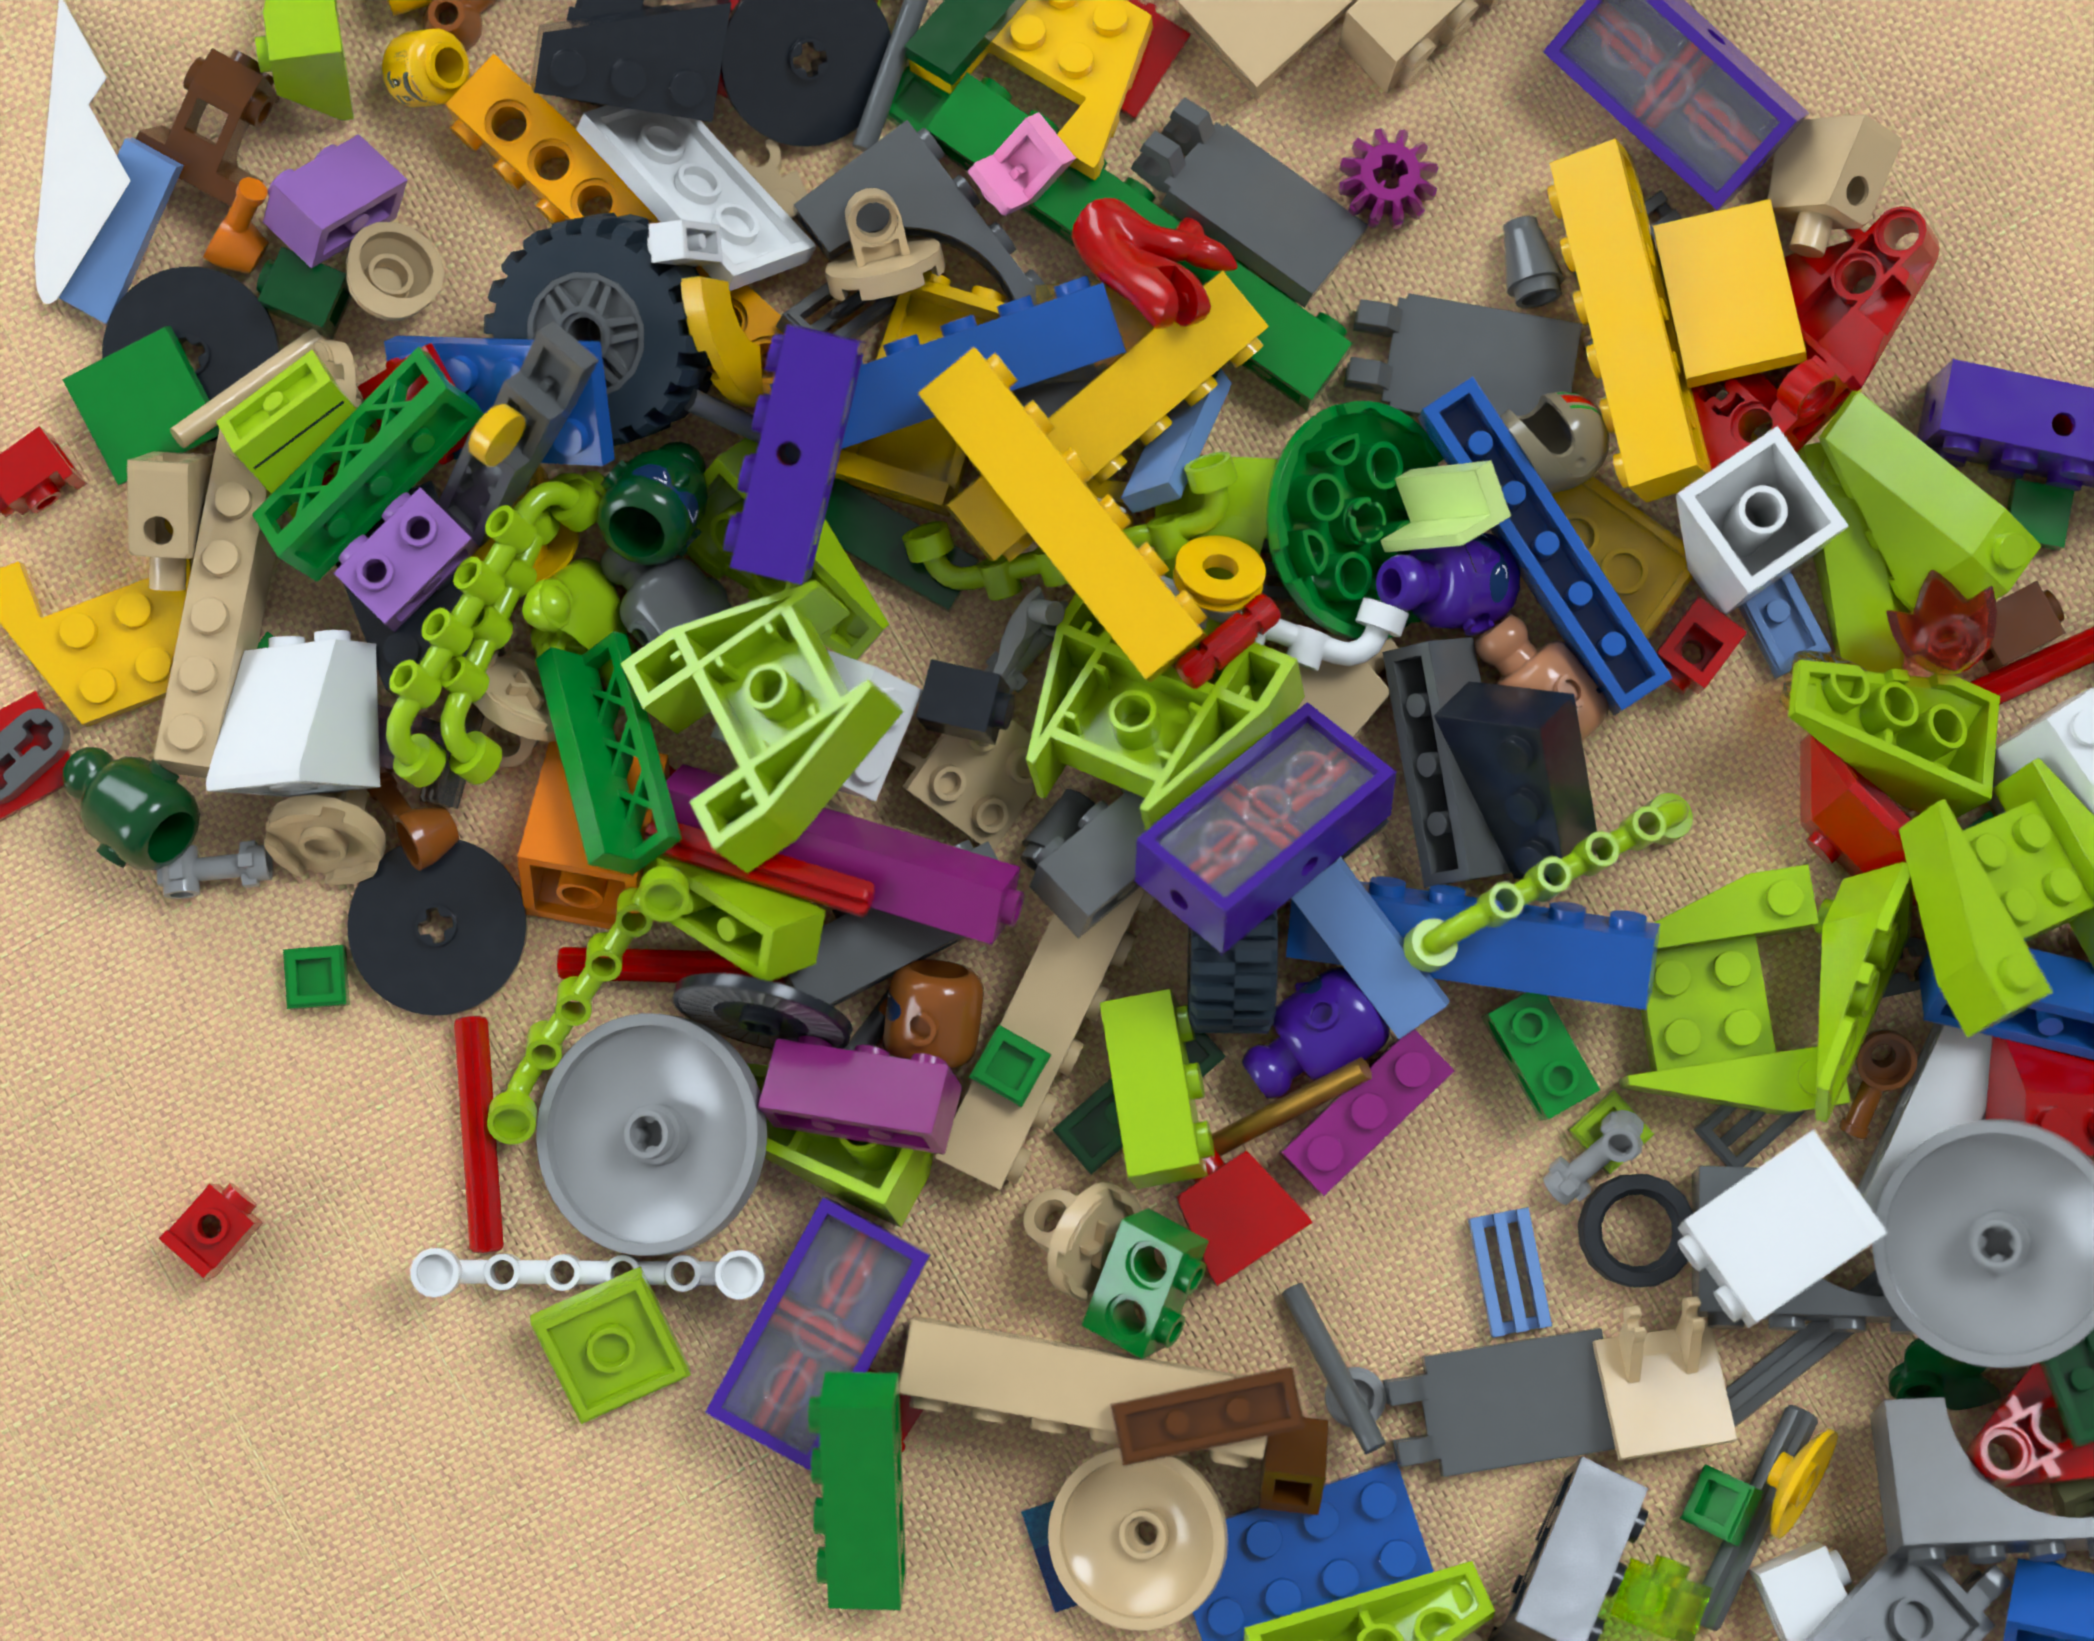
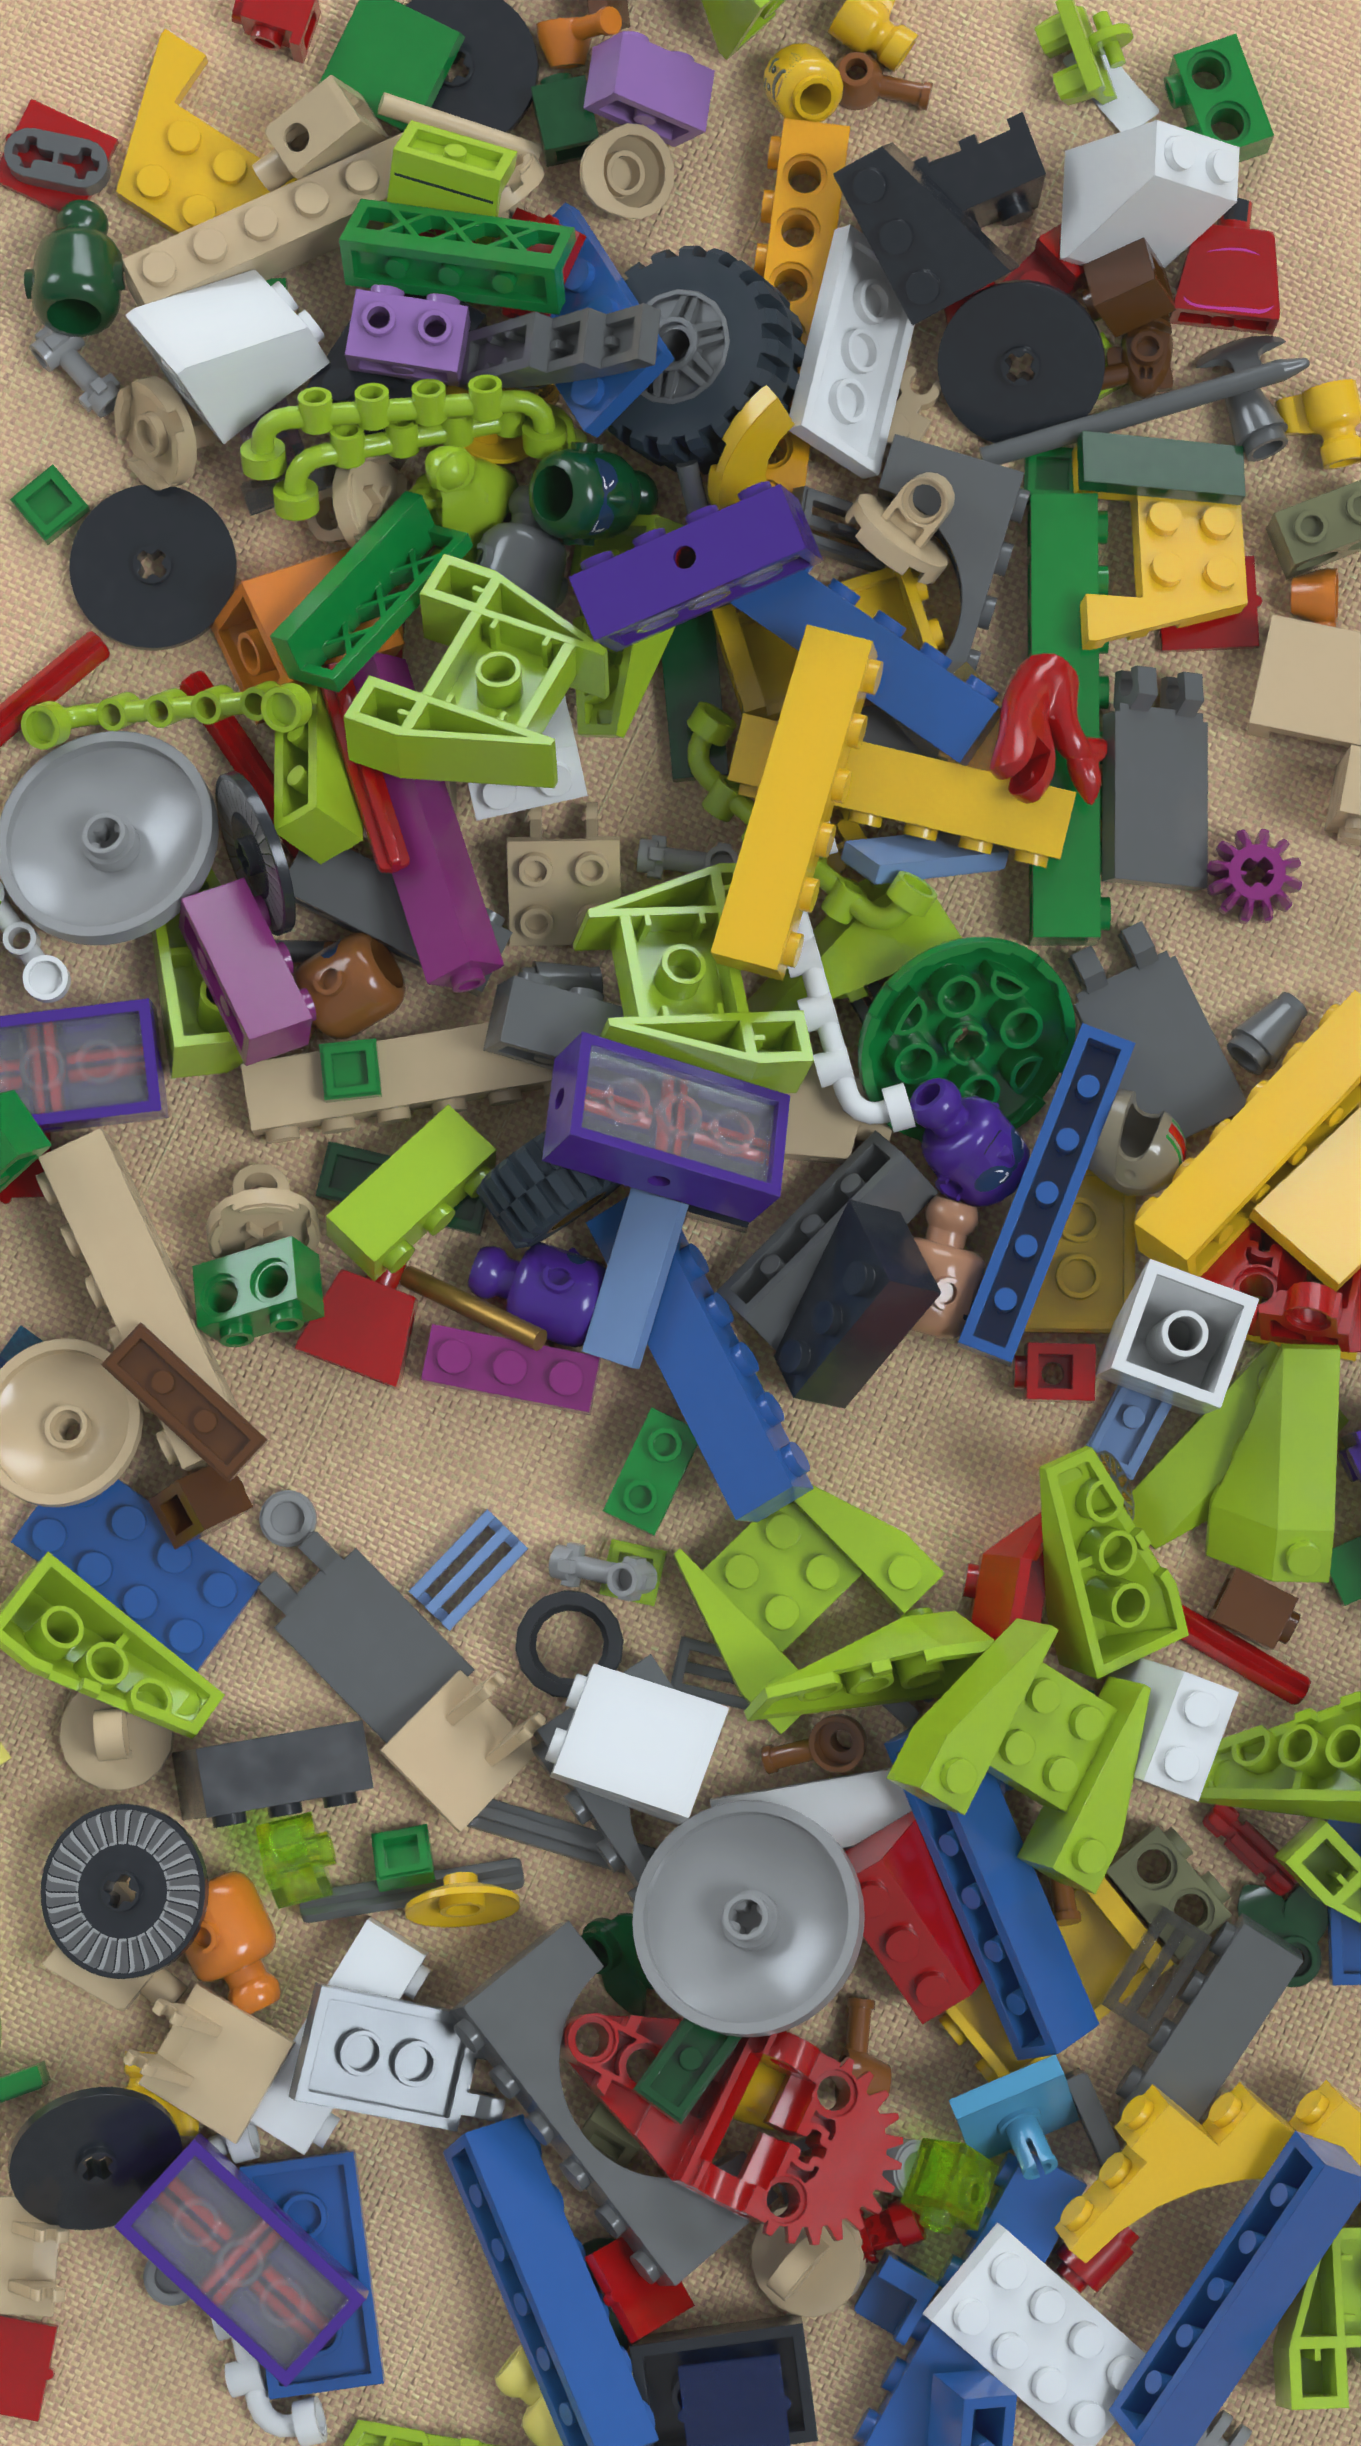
camera: 55 degrees right, 0 degrees up
(422, 832) = (215, 503): dark orange bar -> none
(496, 435) = (544, 331): yellow tile -> none
(685, 243) = (797, 369): white piece -> none
(965, 702) = (602, 835): black brick -> none
(1022, 166) = (1050, 585): bright pink bracket -> none
(1022, 628) = (691, 843): light grey bar -> none
(1222, 553) = (858, 947): yellow piece -> none
(1227, 641) = (789, 998): red axle -> none
(1333, 1368) = (297, 1484): dark grey bar -> none
(1447, 506) = (1022, 1098): yellowish green panel -> none
(1662, 822) = (903, 1442): lime bar -> none
(1944, 617) = (1213, 1542): clear red piece -> none

